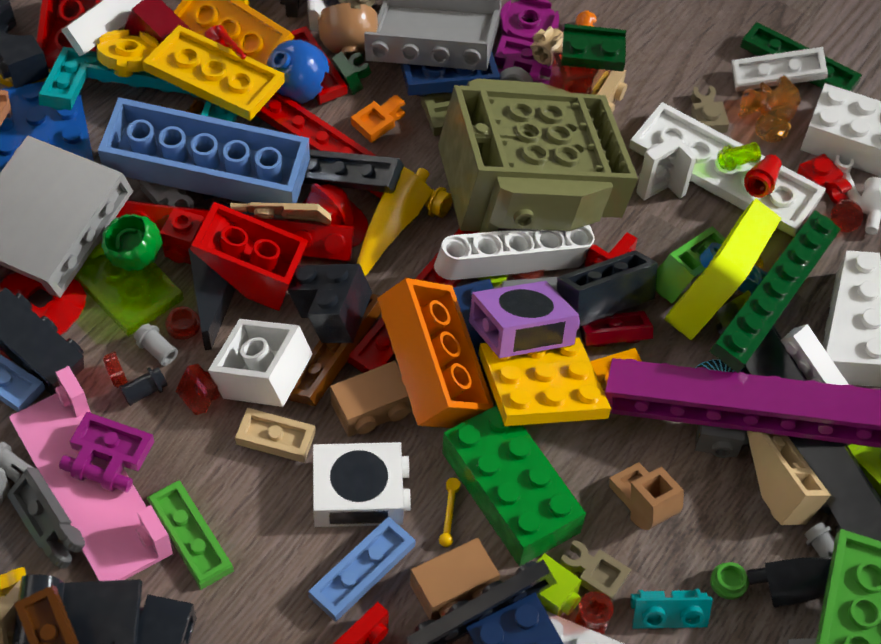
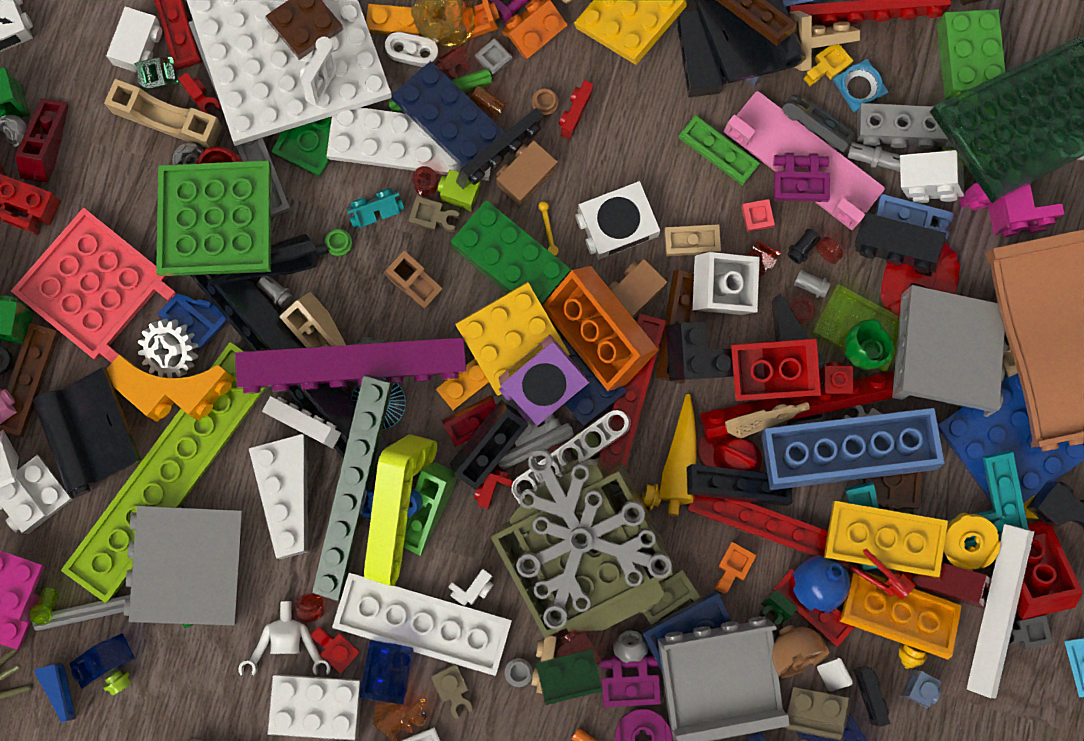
camera: 160 degrees right, 25 degrees up
(181, 436) = (757, 215): none -> coral plate
(361, 569) = (592, 162): medium blue plate -> none
(541, 134) = (564, 507): none -> light grey plant
(546, 45) = (613, 691): tan gear -> none
(636, 103) = (518, 672): none -> light grey plate
(731, 157) = (413, 628): clear neon green pin -> none
(763, 176) = (387, 611): red cone -> none
(779, 127) = (386, 672): none -> clear blue bracket

